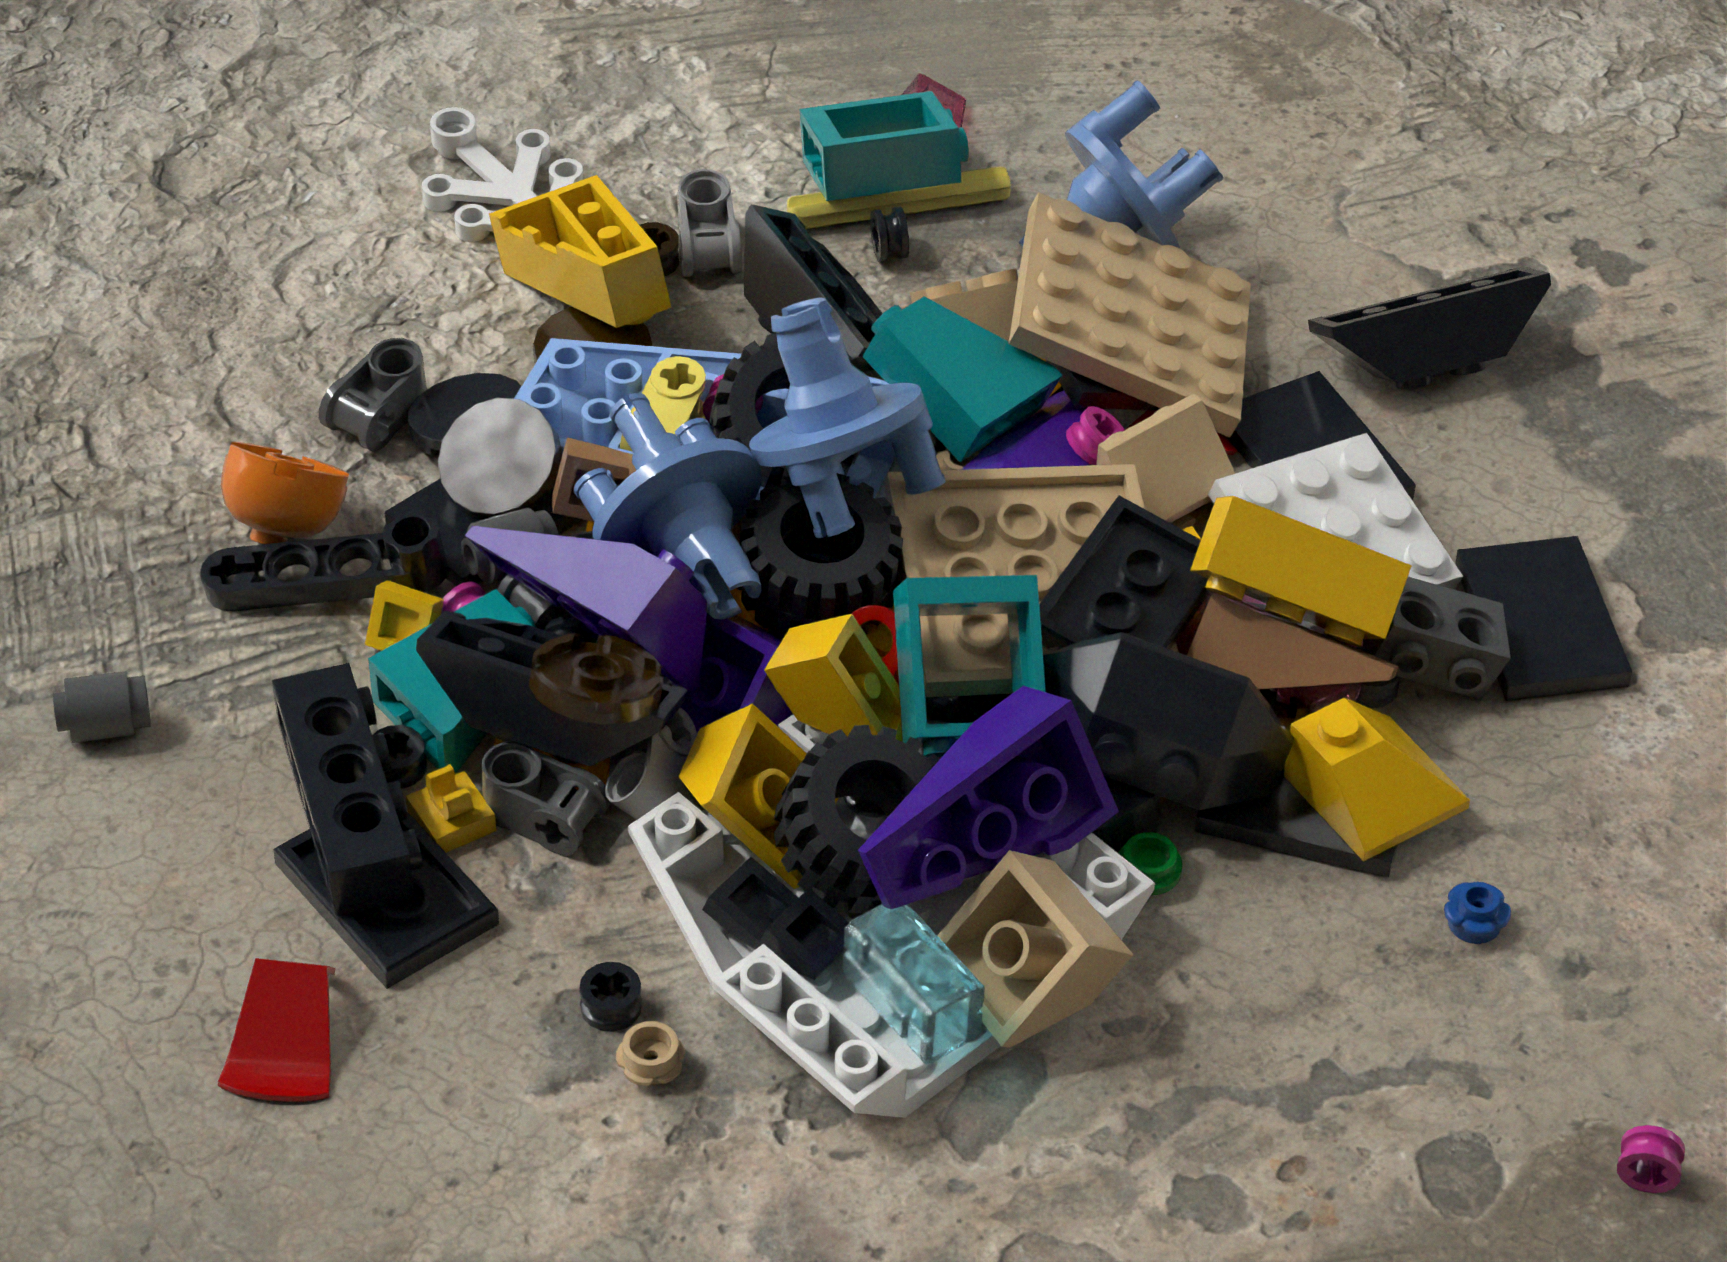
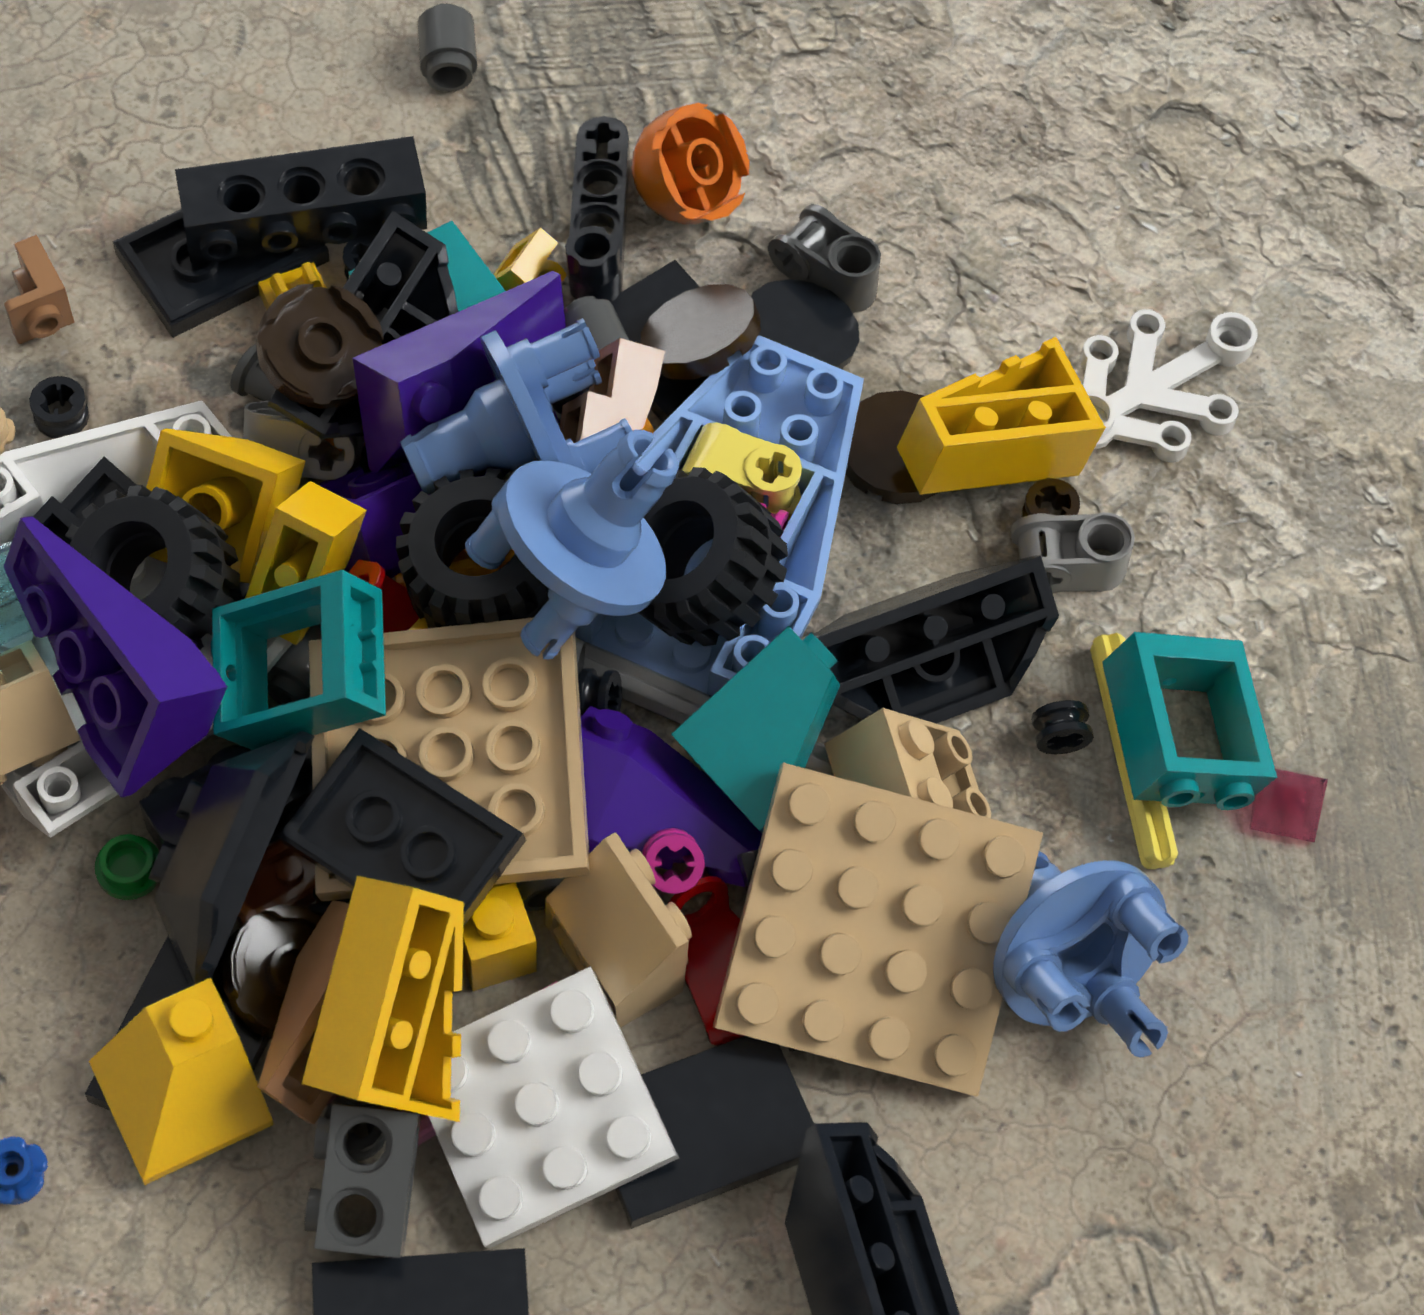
camera: 90 degrees right, 15 degrees up
(282, 1034) = (55, 168): red piece -> none
(463, 1015) = (43, 298): none -> medium nougat bracket

